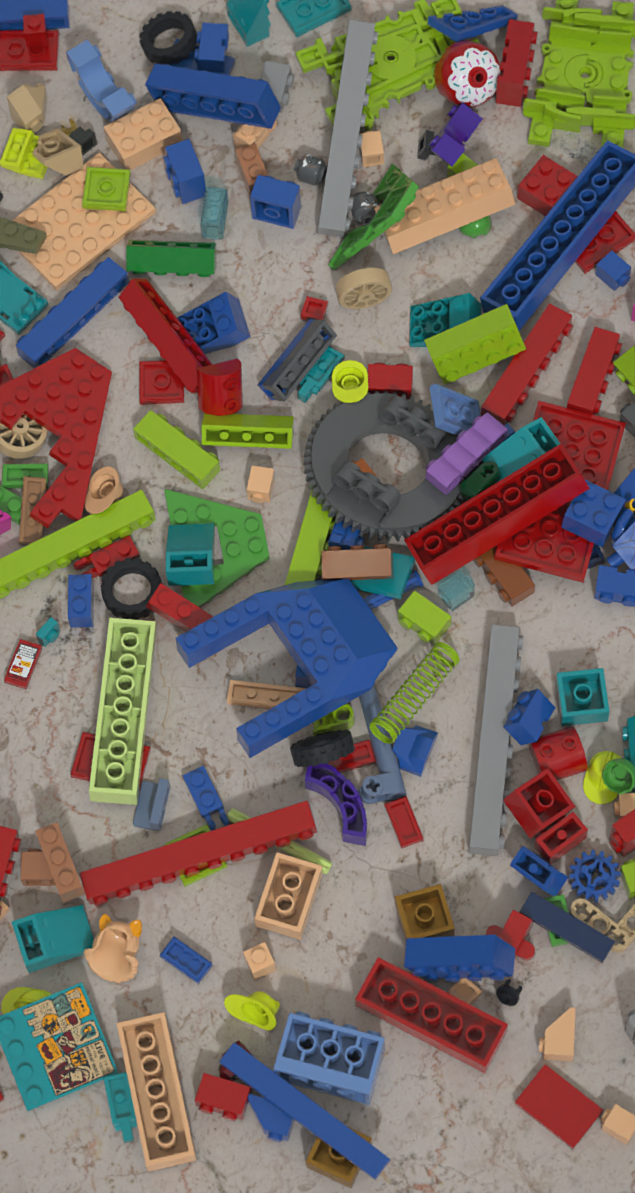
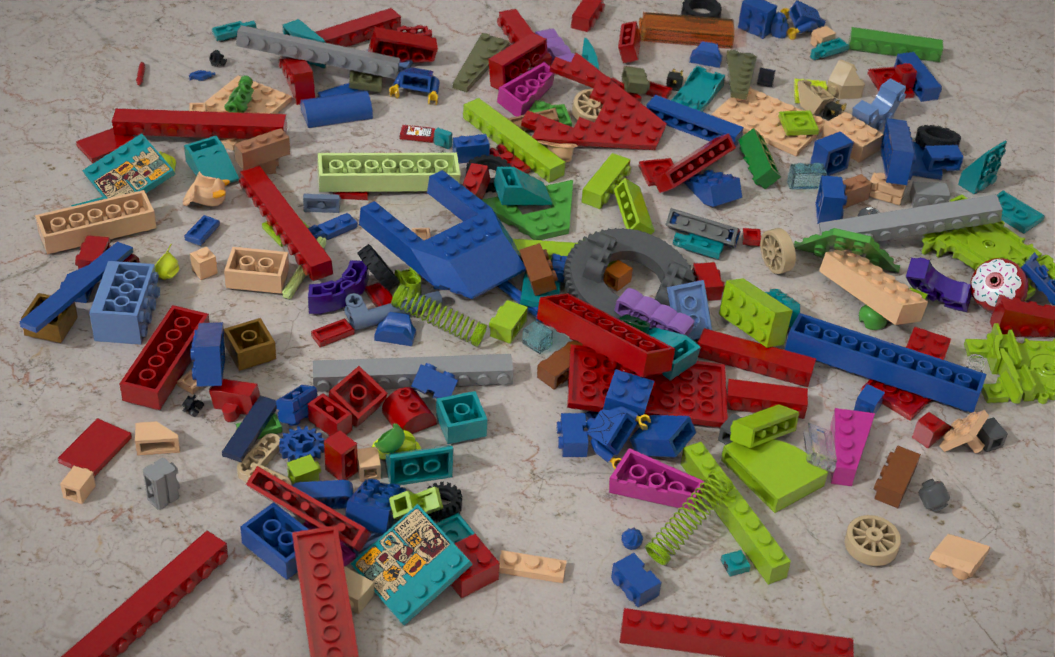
camera: 70 degrees right, 25 degrees down
(220, 388) = (661, 188): red brick -> none
(260, 484) = (592, 222): light nougat brick -> none
(350, 381) = (694, 253): neon yellow piece -> none
(372, 149) = (904, 249): light nougat brick -> none

